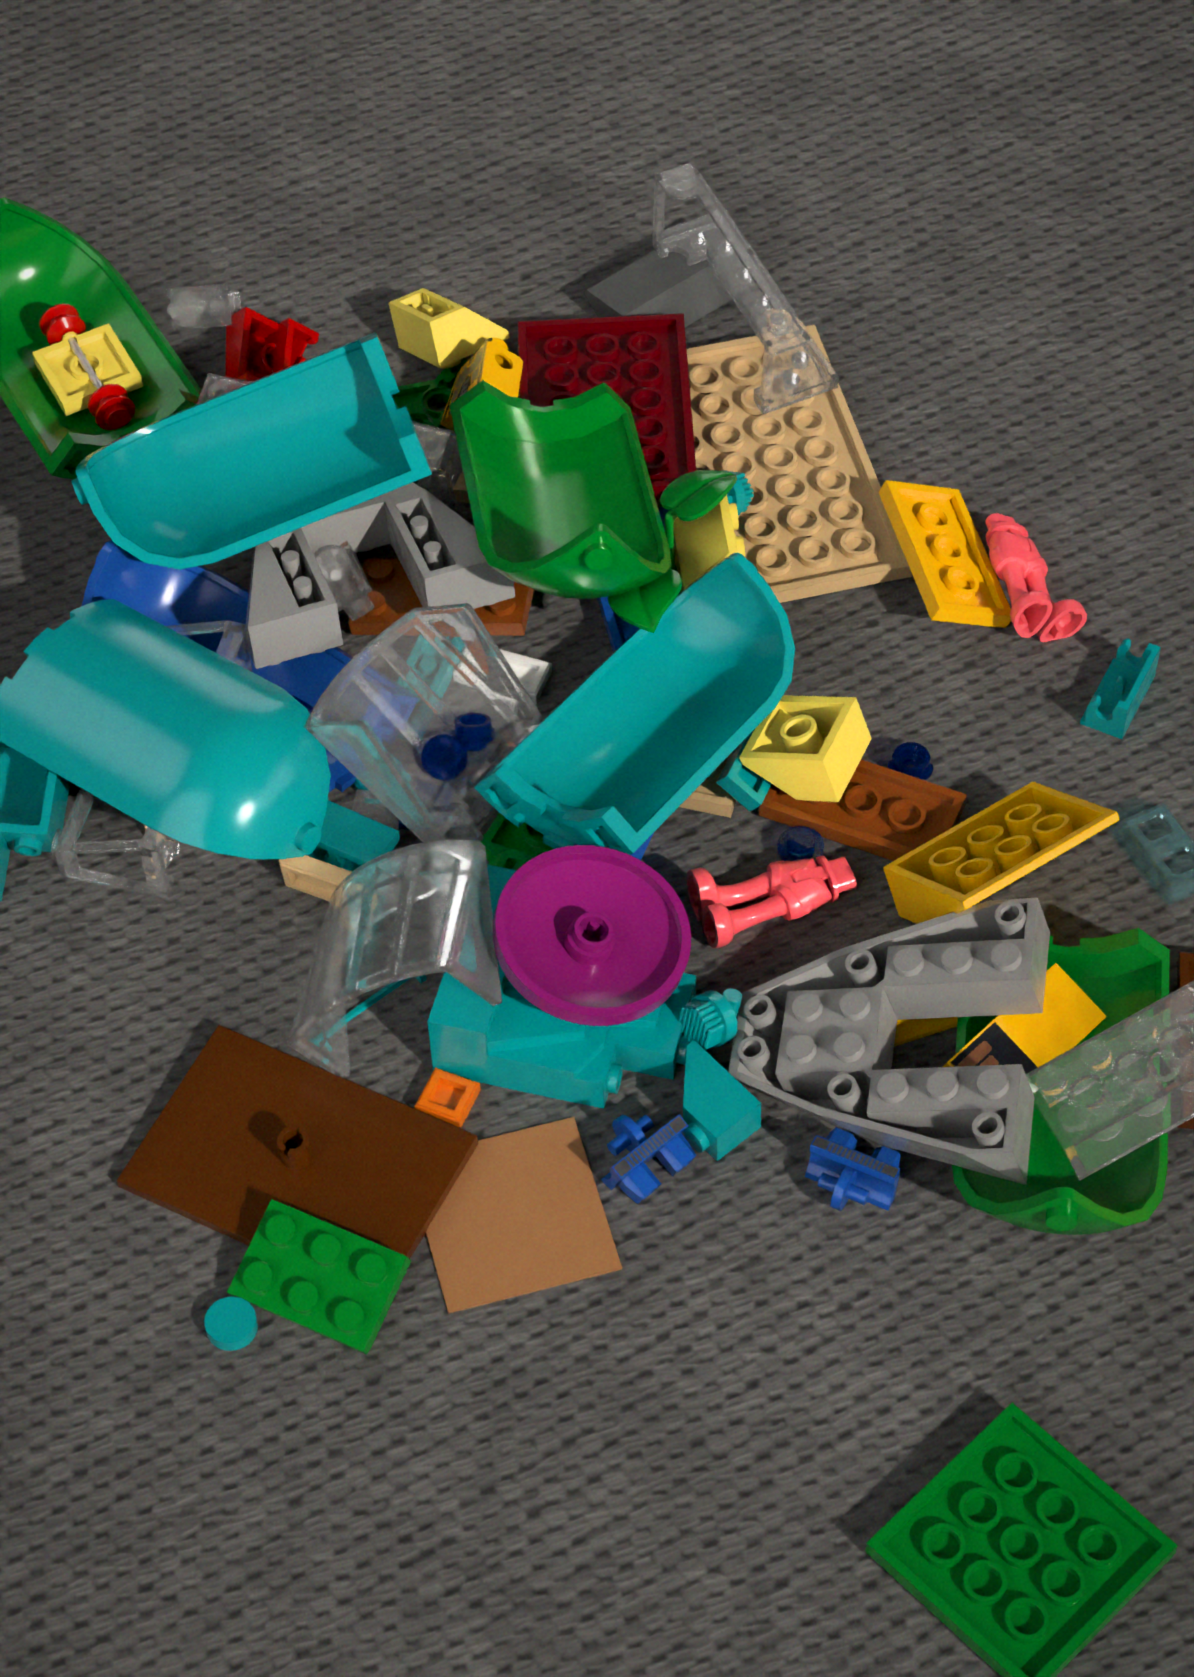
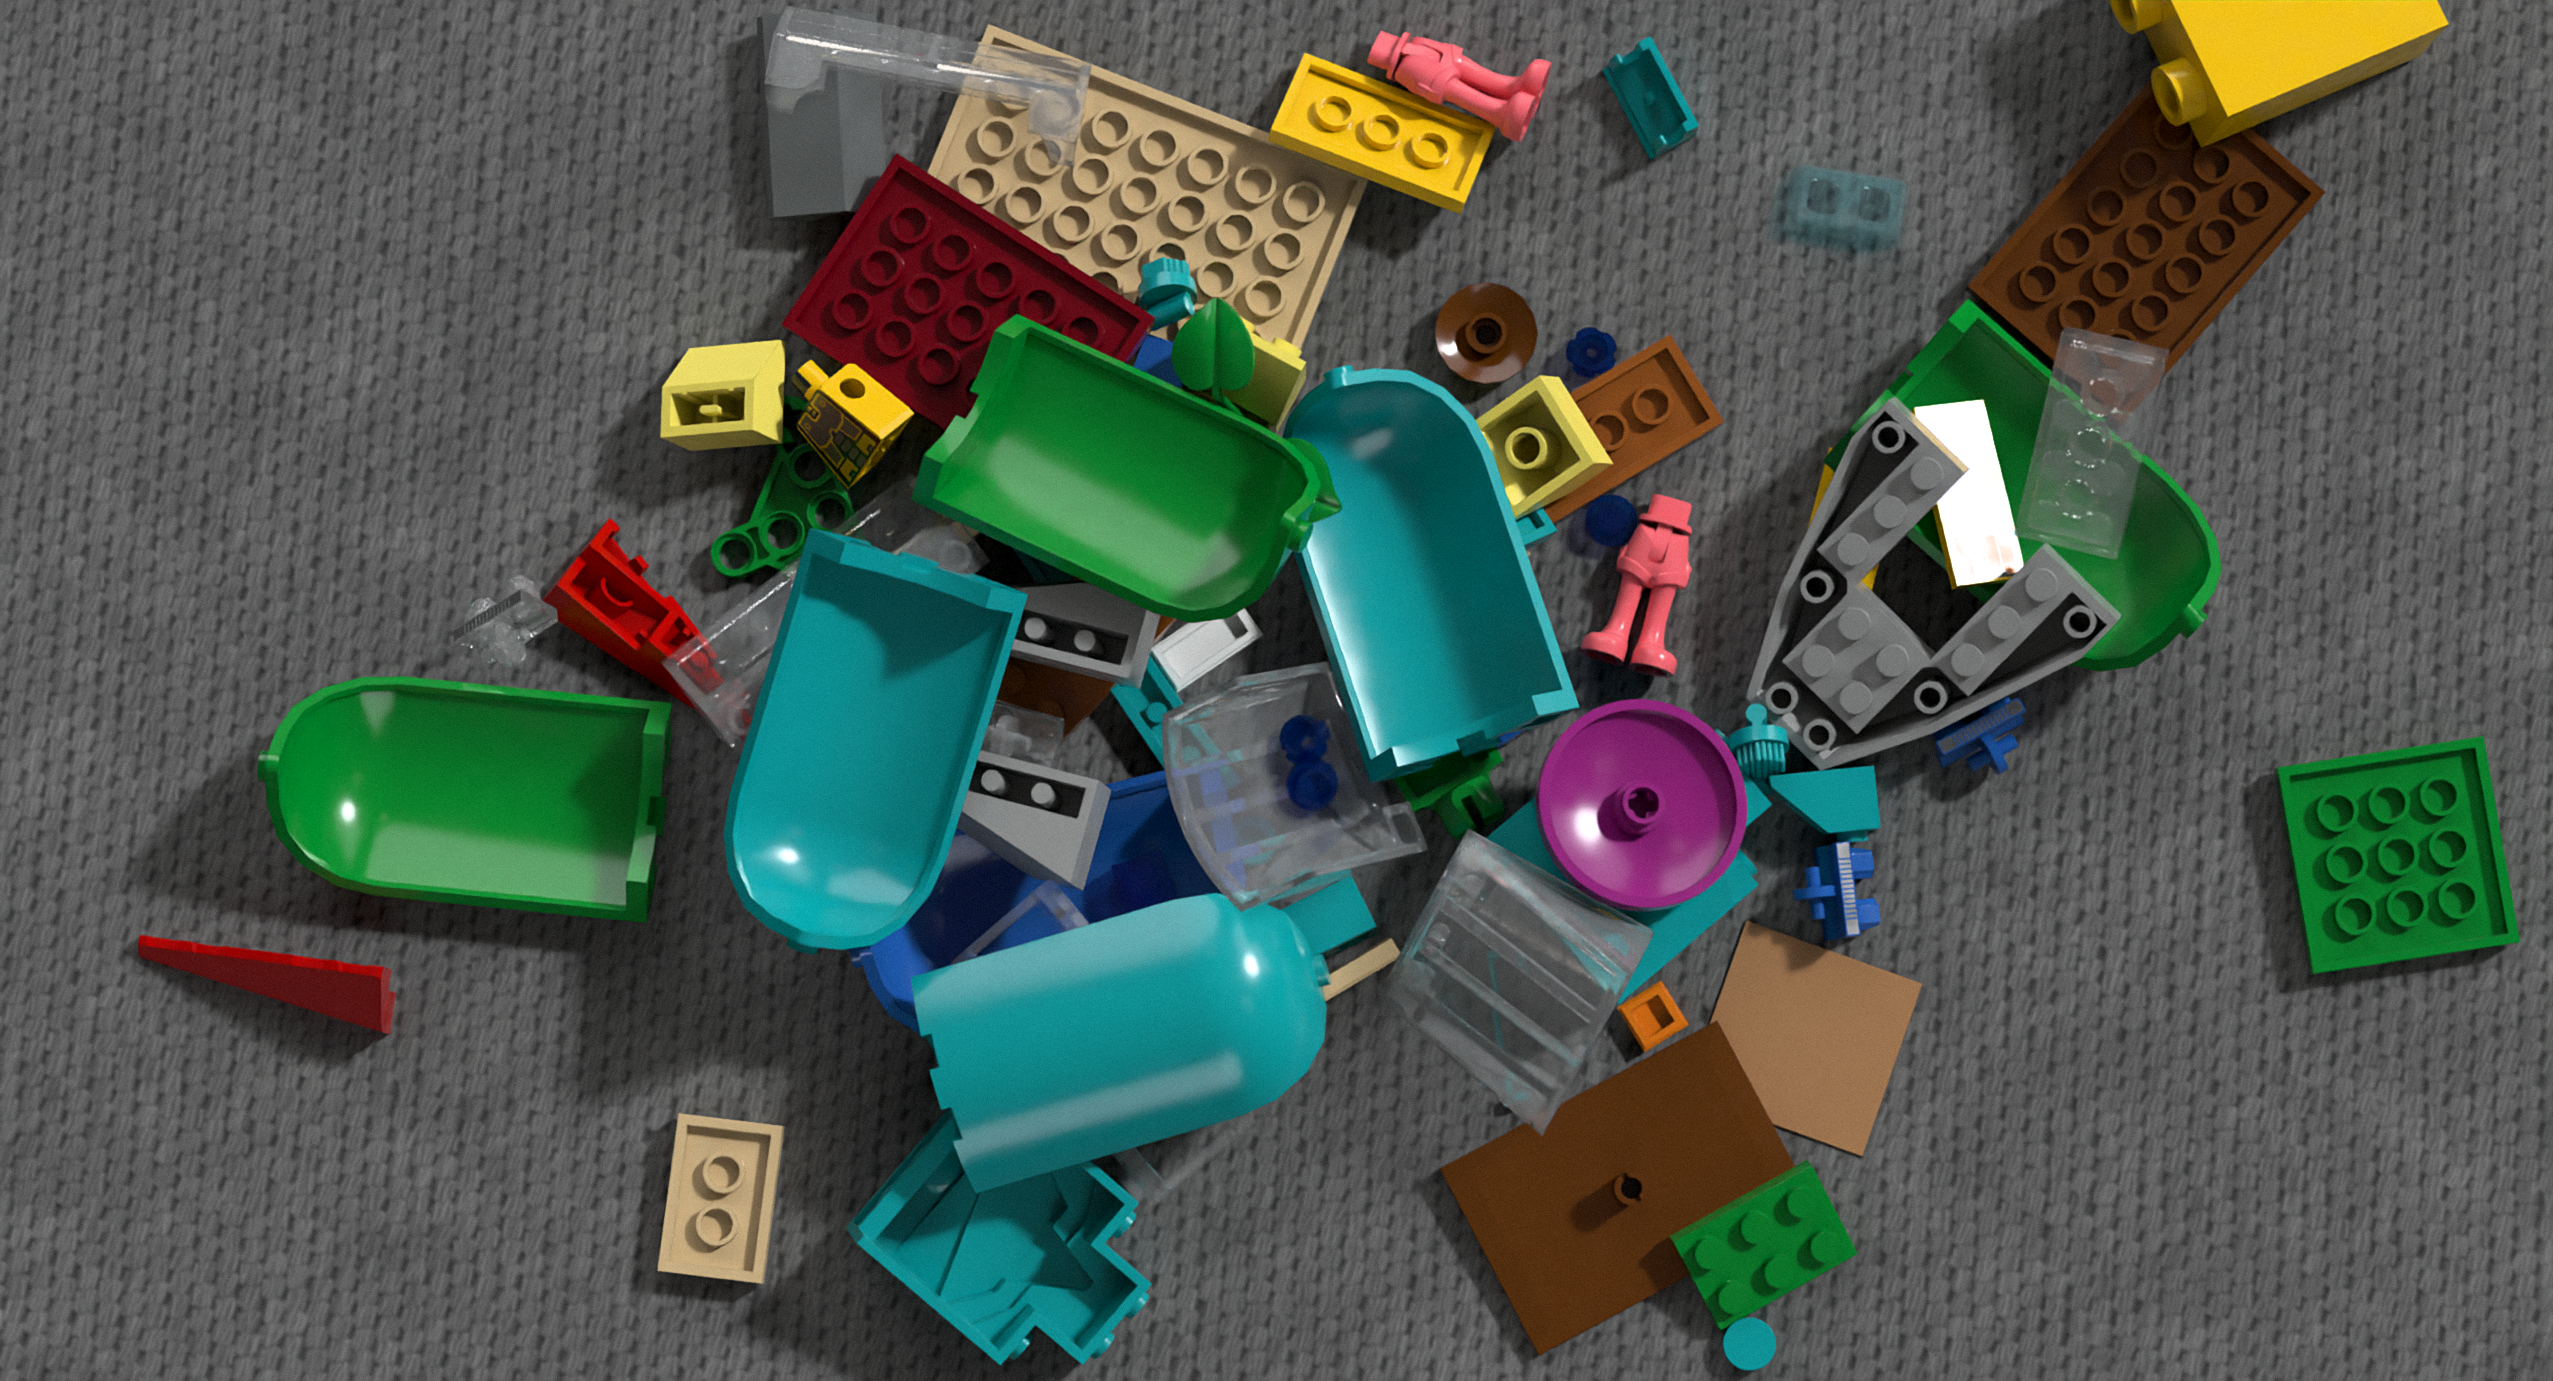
camera: 55 degrees left, 30 degrees up
(87, 368) = (507, 793): light yellow plate -> none
(869, 679) = (1489, 307): none -> reddish brown dish
(991, 850) = (1783, 373): yellow slope -> none

